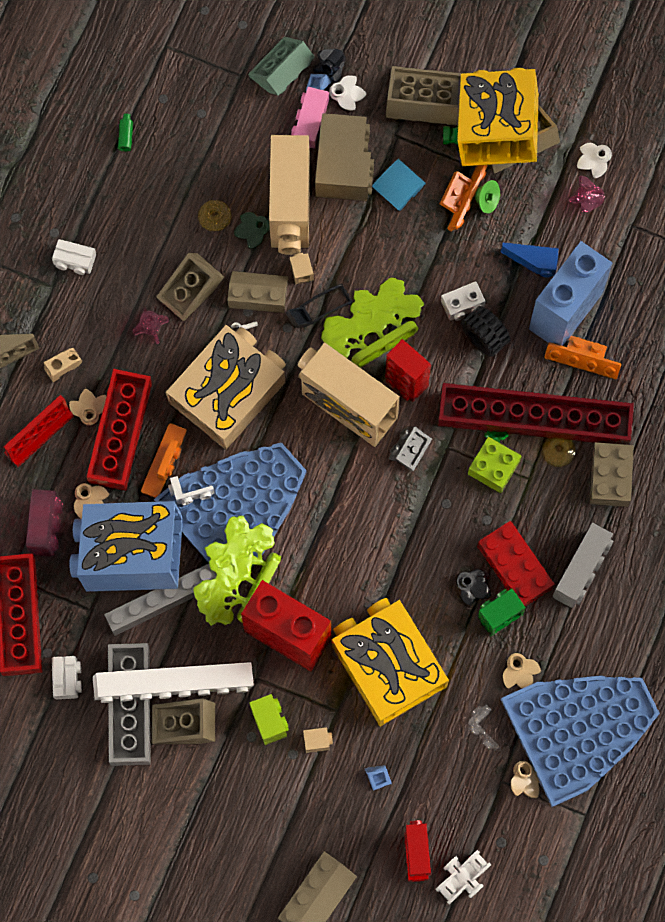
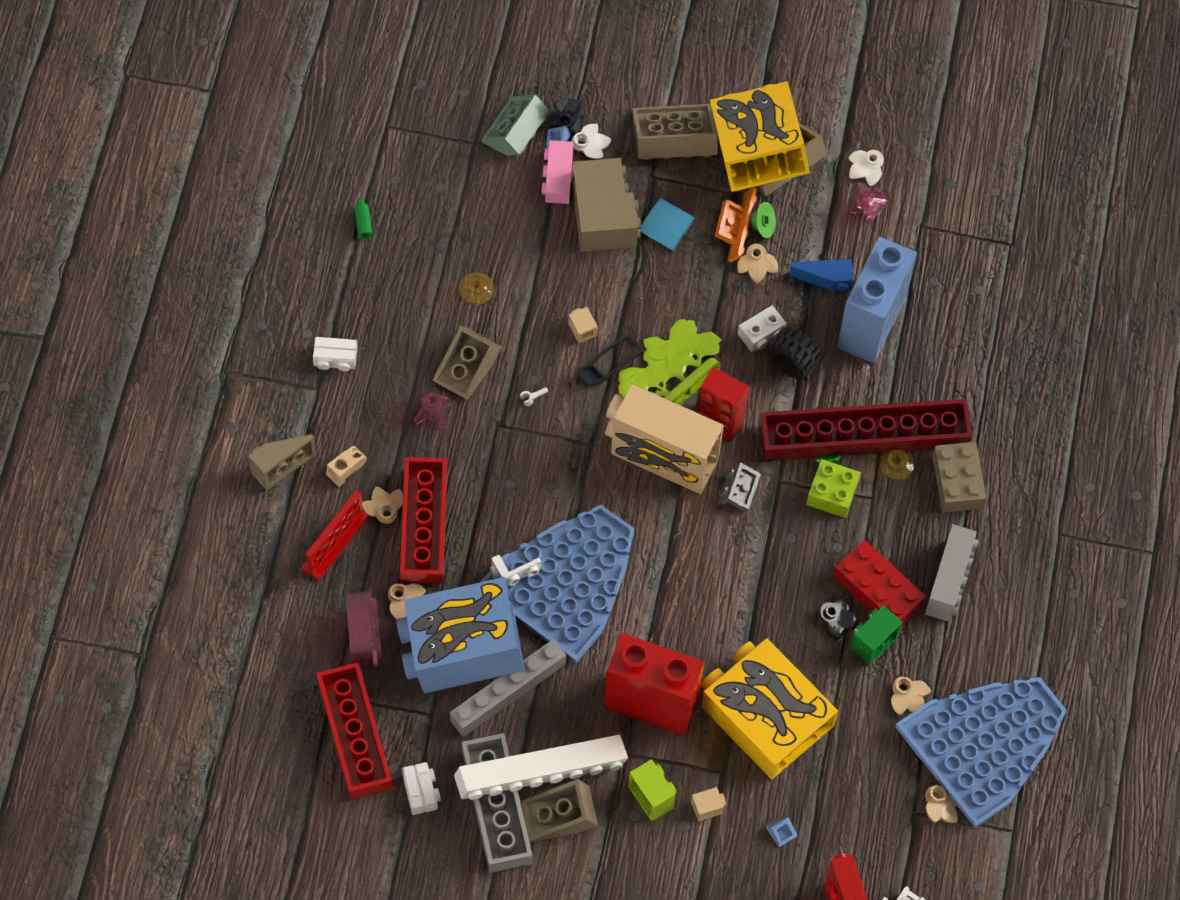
camera: 15 degrees left, 10 degrees down
(163, 461) = (478, 545): orange bracket -> none
(227, 385) = (530, 455): brick -> none
(232, 566) = (579, 637): lime plant -> none
(249, 229) = (518, 296): clear green plate -> none
(257, 292) = (541, 357): dark tan slope -> none
(289, 193) = (556, 246): tan brick -> none
(450, 135) = (712, 165): green wheel -> none
(473, 239) = (757, 265): none -> tan plate
(478, 715) = (876, 761): clear bracket -> none
(583, 355) = (901, 363): orange bracket -> none

